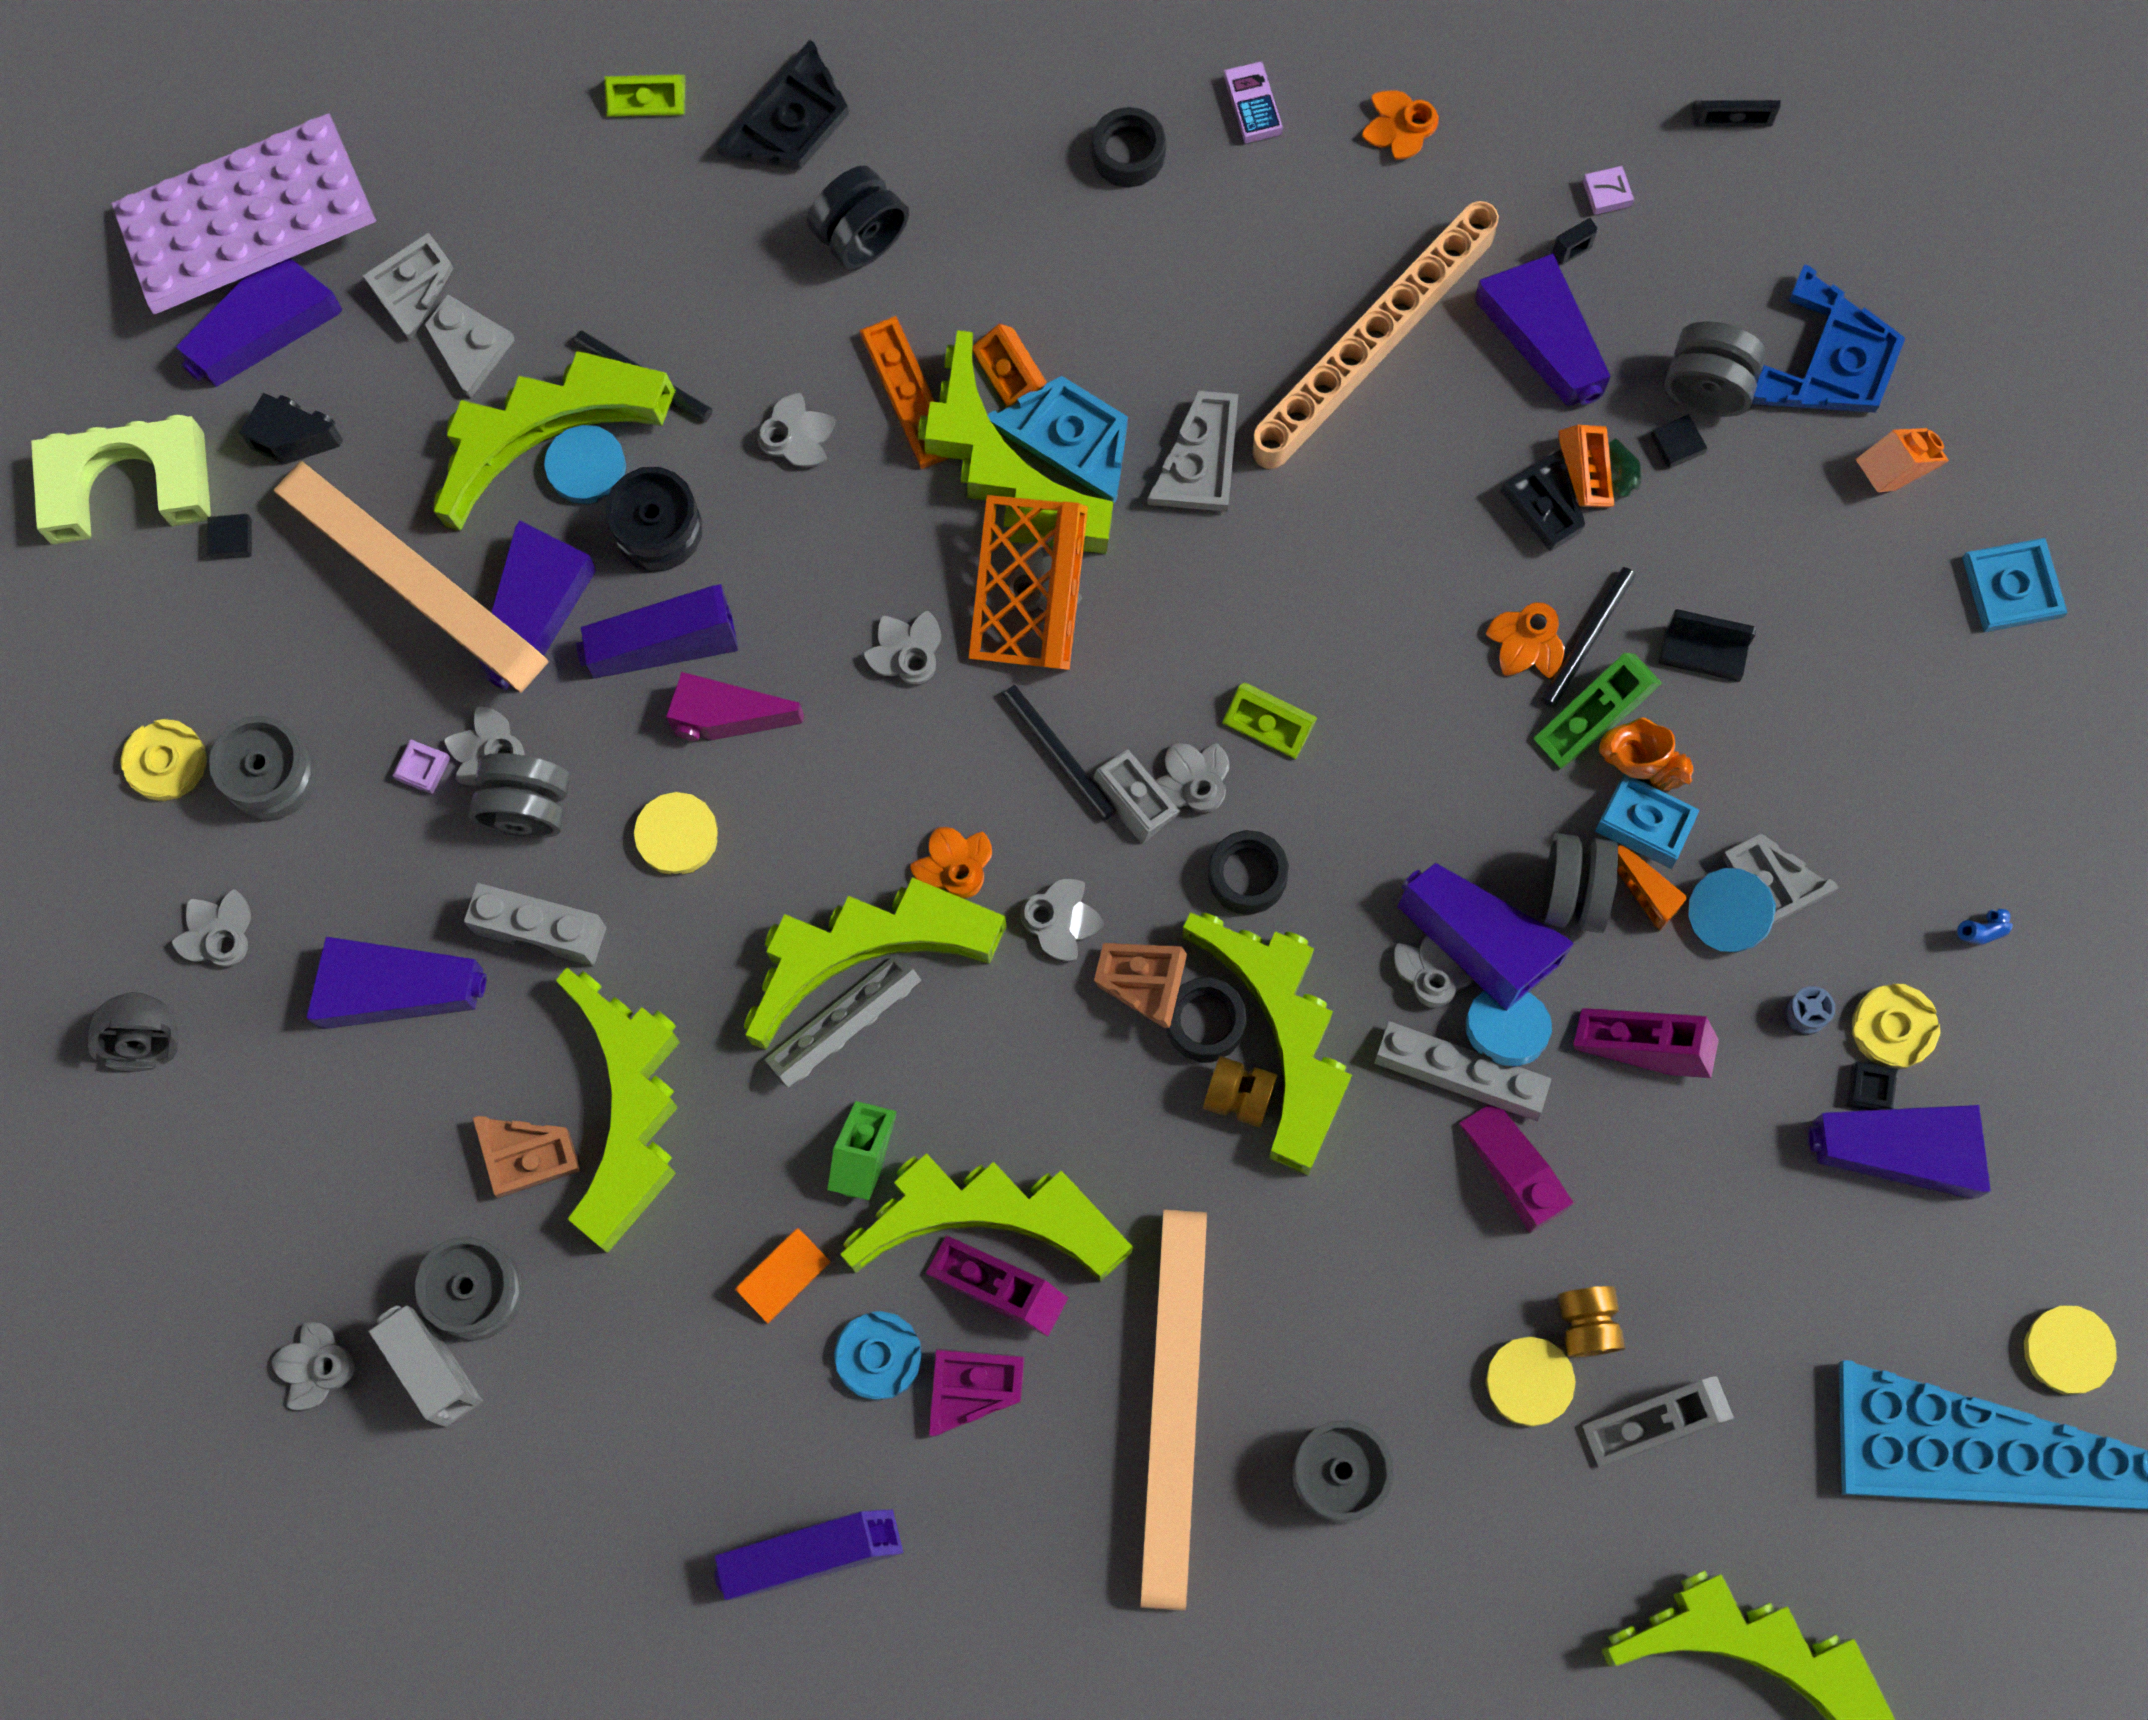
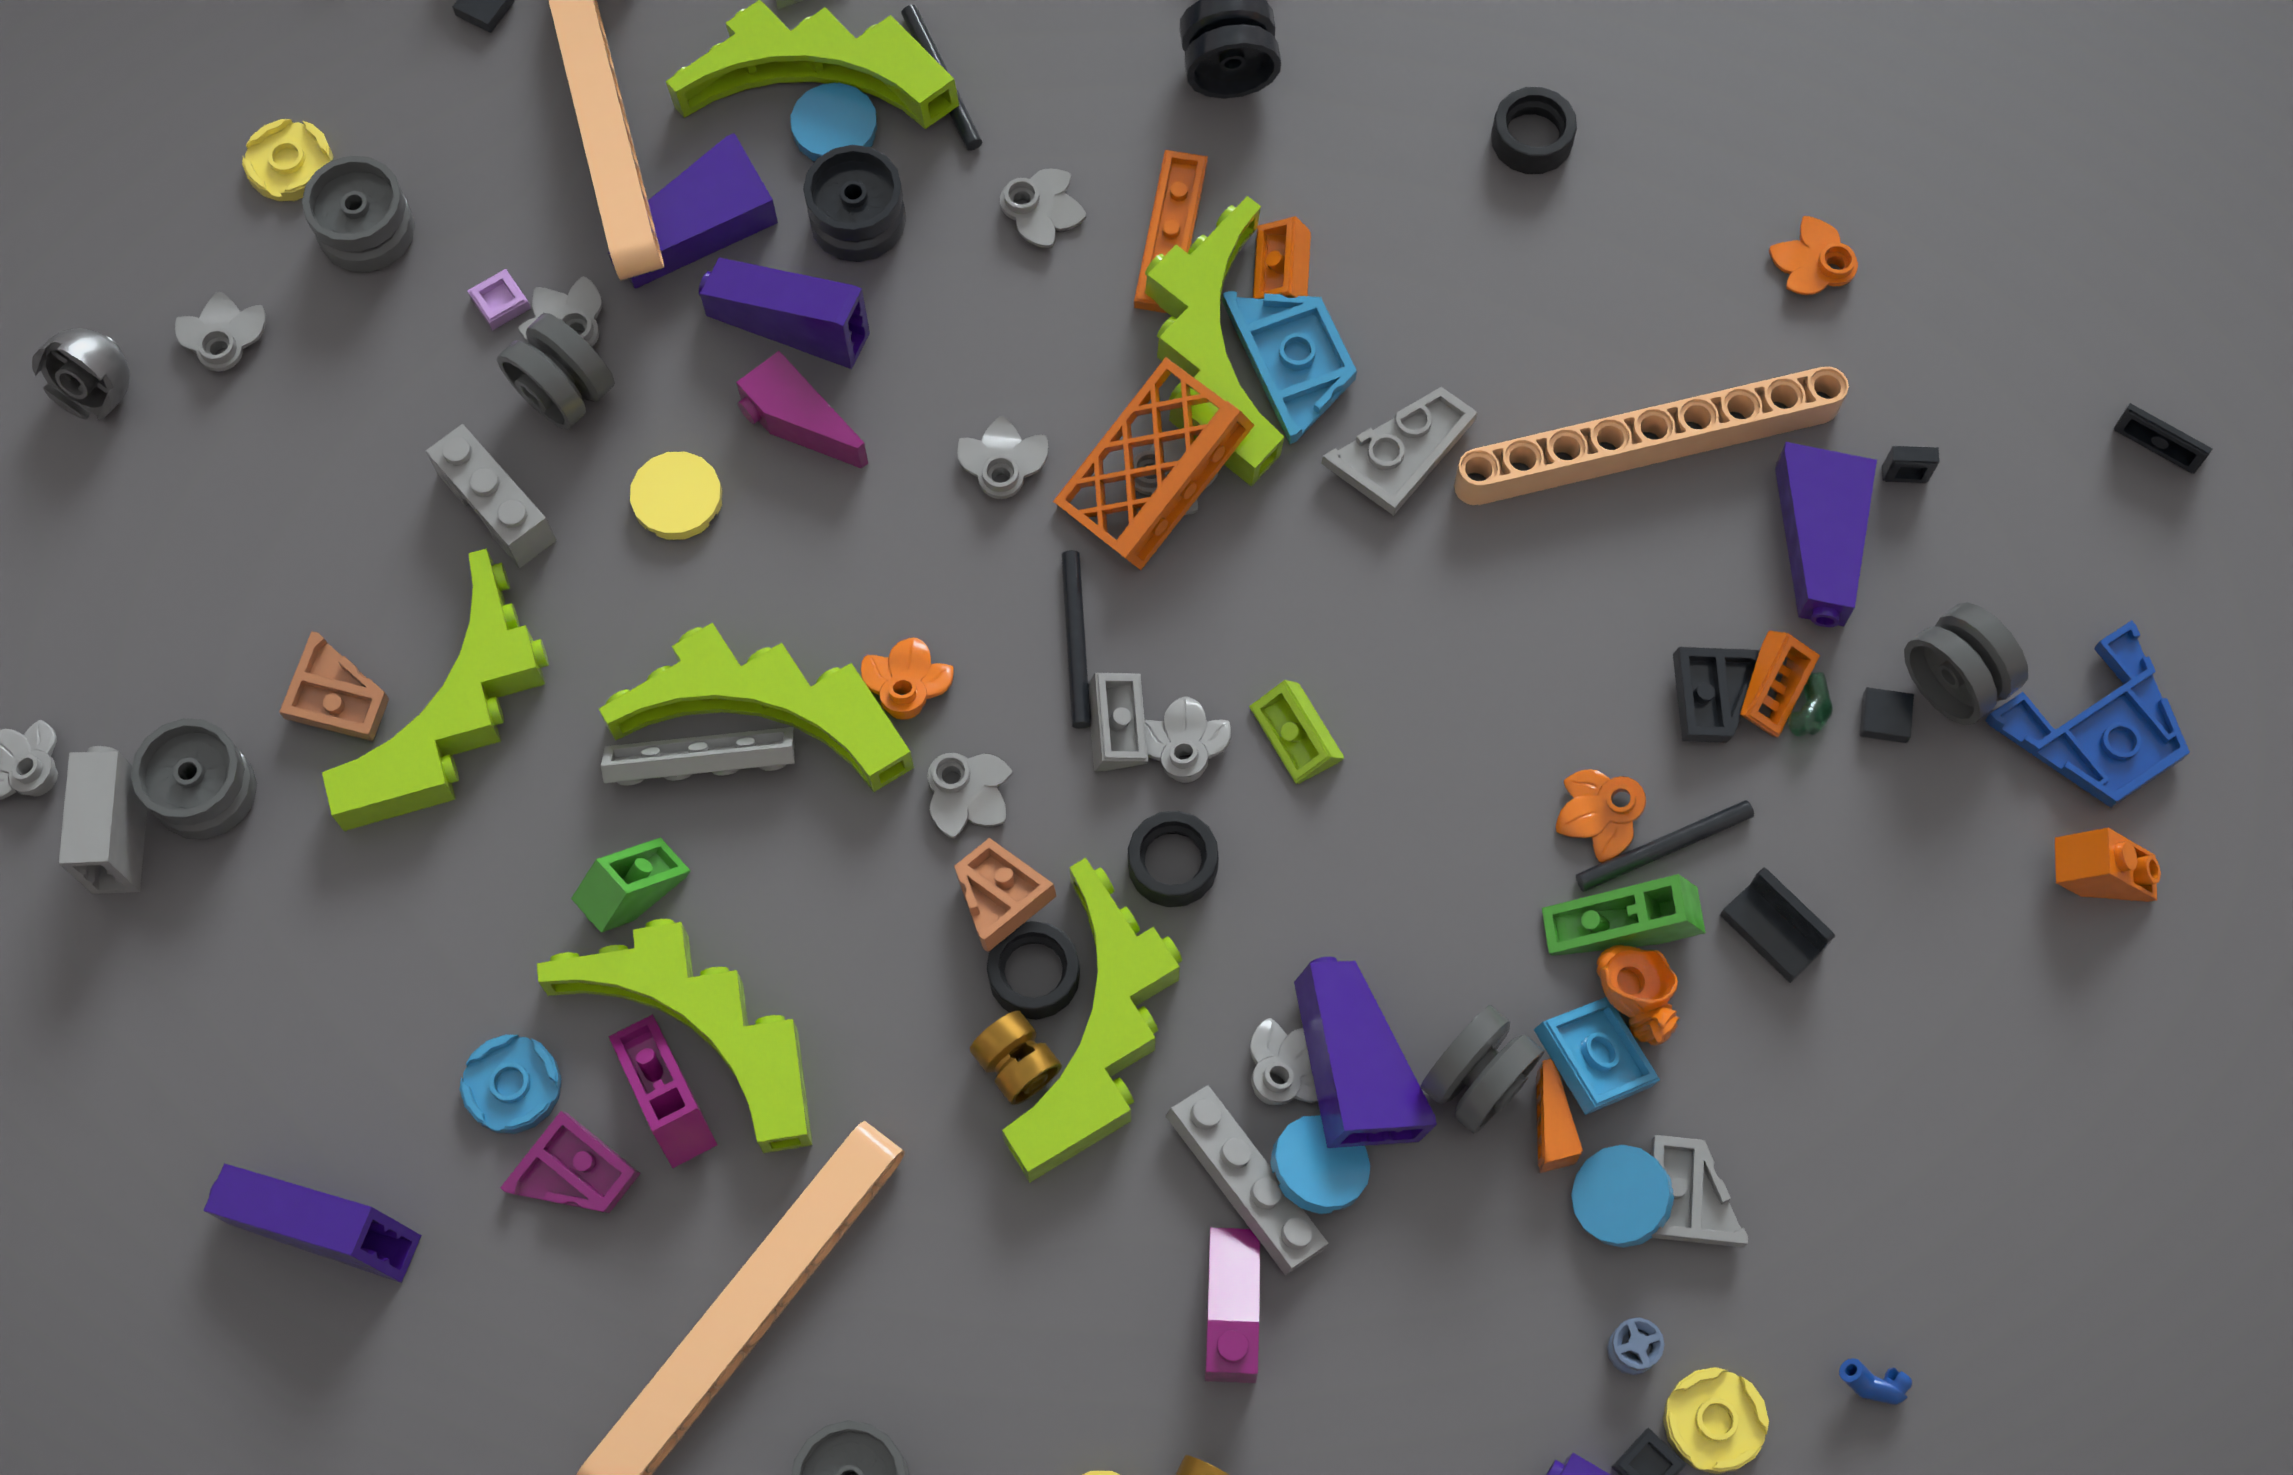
camera: 30 degrees right, 5 degrees down
(388, 983) = (327, 467): dark purple slope -> none
(782, 1275) = (478, 951): orange slope -> none
(1253, 102) = (1683, 158): tile -> none
(1608, 190) = (1980, 437): lavender tile -> none
(1650, 1040) = (1451, 1270): magenta slope -> none
(2014, 585) = (2143, 1063): dark azure tile -> none

